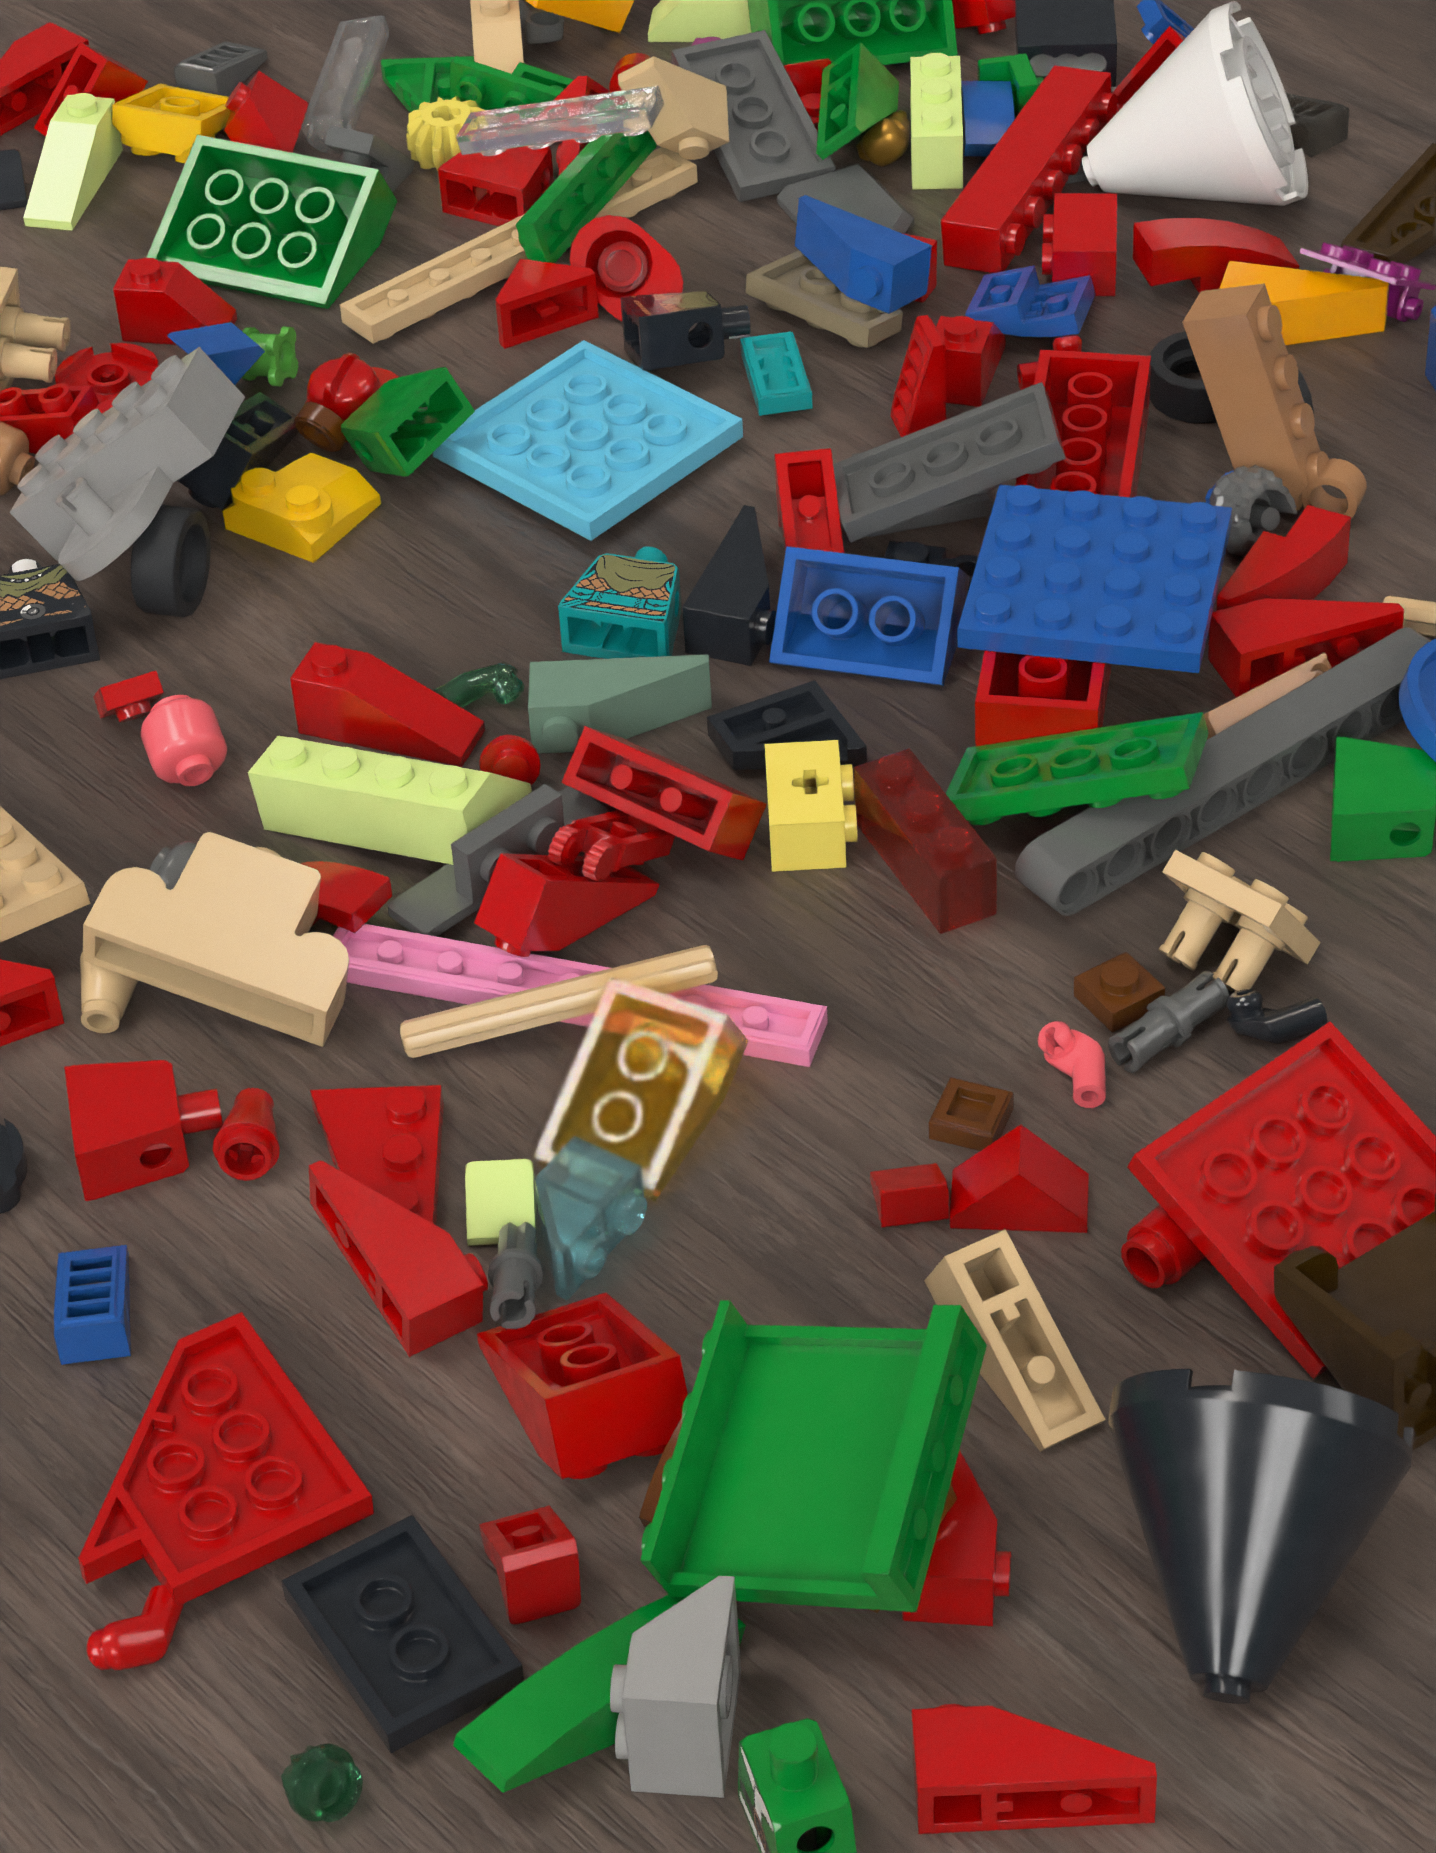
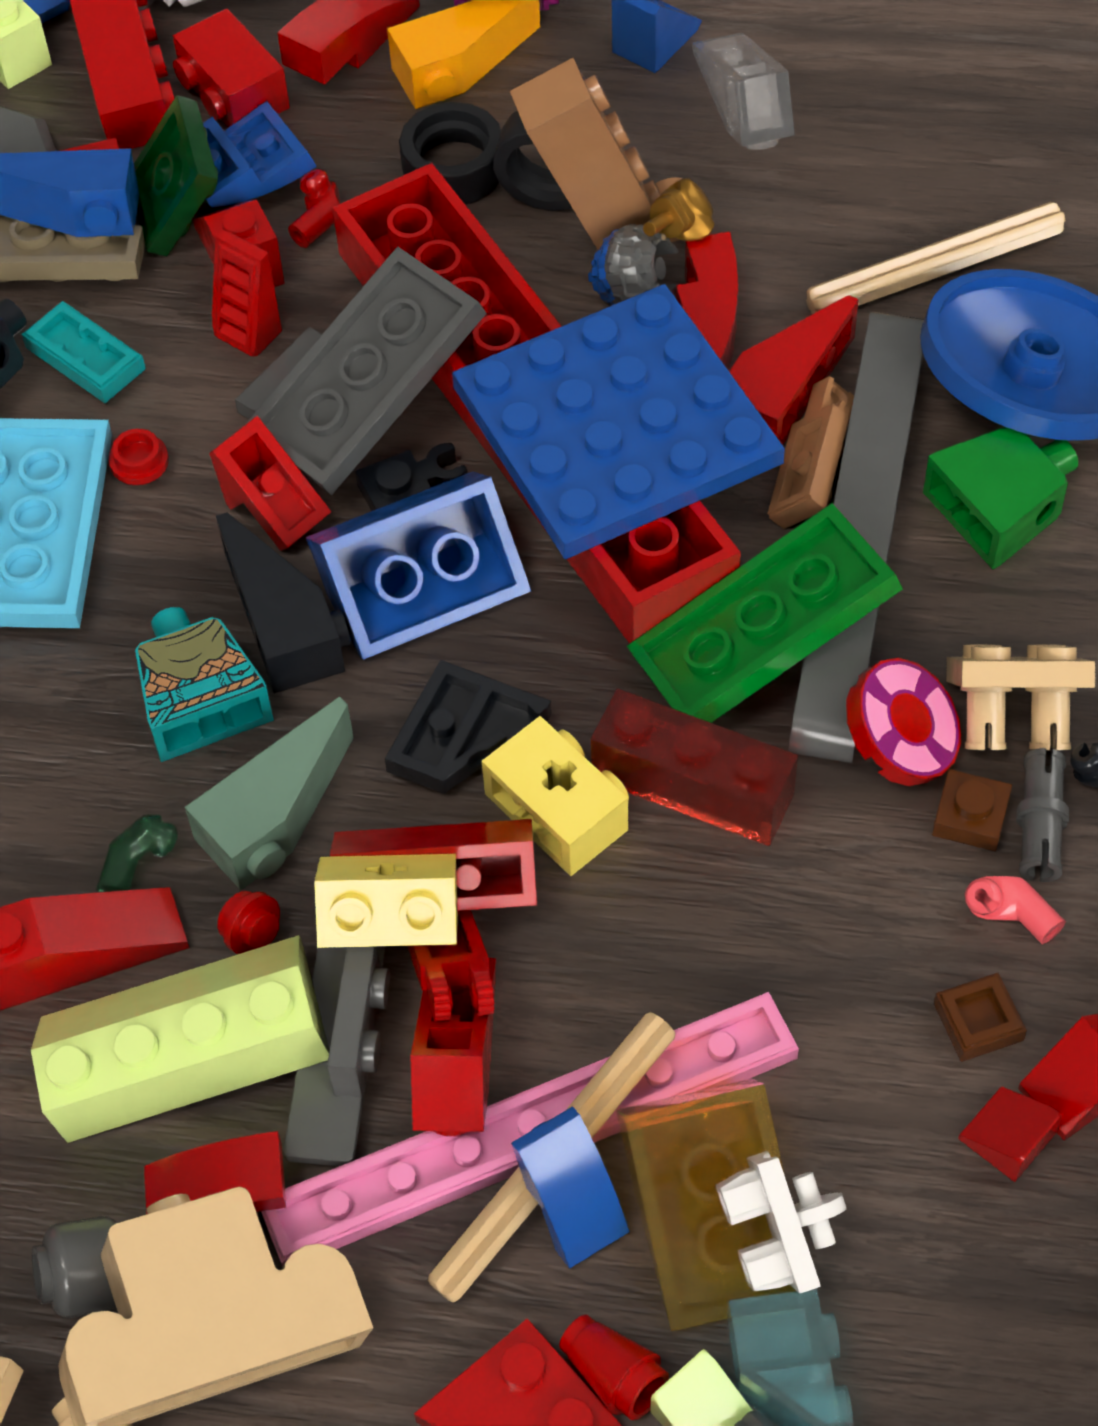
camera: 40 degrees left, 15 degrees up
(464, 1139) = (614, 1366): none -> red cone
(541, 1014) = (570, 1186): none -> blue slope
(593, 771) = (386, 900): none -> light yellow brick
(665, 1109) = (786, 1256): none -> white hips
(743, 456) = (138, 457): none -> red plate
(959, 282) = (174, 176): none -> dark green plate
(1116, 895) = (904, 721): none -> tile
(1314, 479) = (681, 213): none -> pearl gold piece

